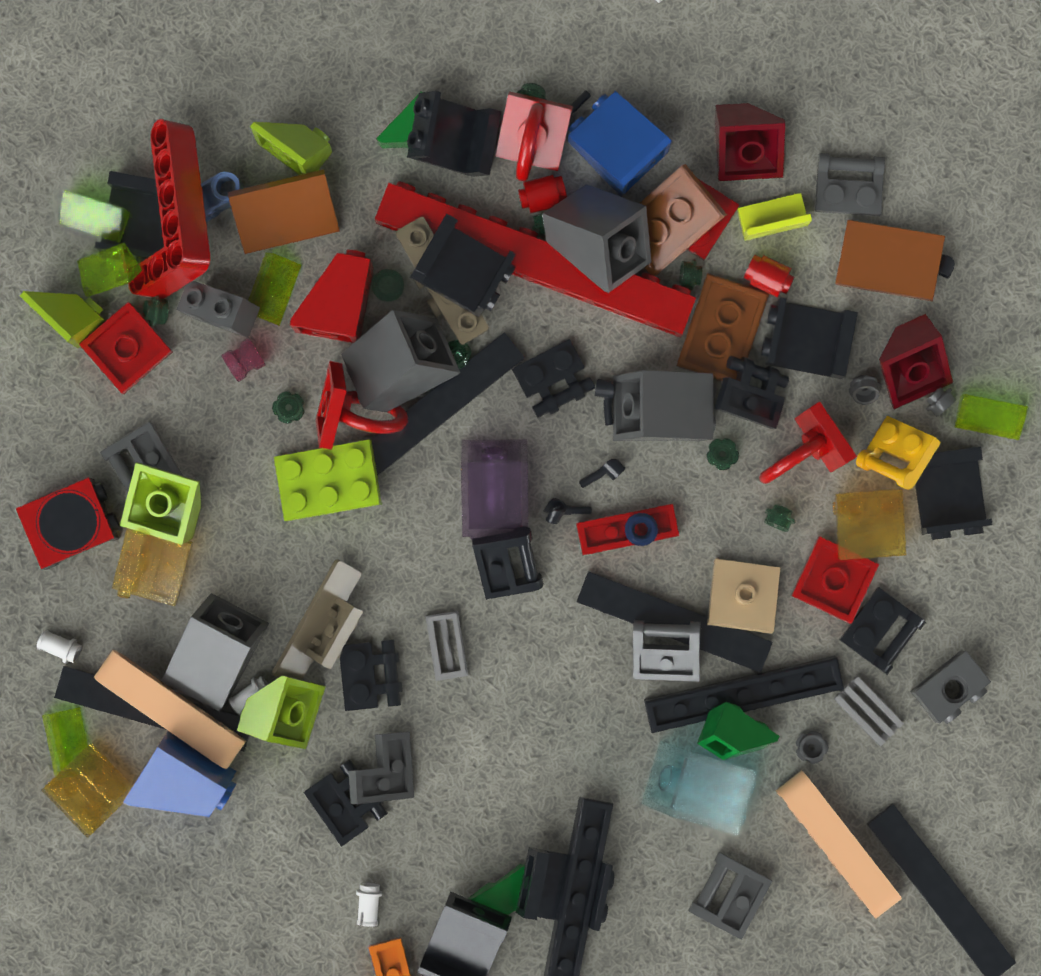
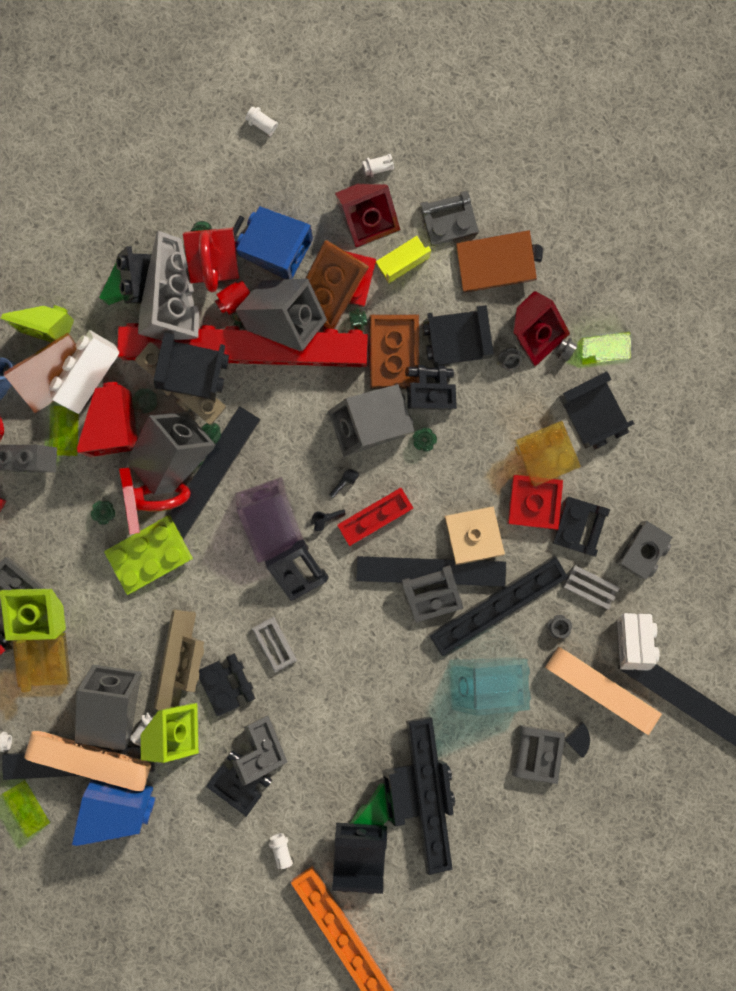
camera: 20 degrees left, 0 degrees up
(88, 790) = (47, 840): clear yellow plate -> none
(243, 359) = (58, 489): clear pink wheel -> none
(326, 224) = (83, 371): none -> white brick
(463, 166) = (167, 293): none -> light grey wedge
(548, 369) = (280, 422): black plate -> none
(605, 389) = (326, 422): black hand -> none
(652, 529) = (384, 505): dark blue plate -> none
(733, 733) = (500, 637): green slope -> none
(769, 275) = (414, 301): red brick -> none
(779, 86) = (377, 165): none -> white pin
(780, 516) = (480, 470): clear green plate -> none
(787, 896) = (579, 739): none -> black tile
(820, 439) = (491, 405): red tile -> none
(901, 797) = (636, 641): none -> white brick
(903, 443) = (550, 387): yellow plate -> none

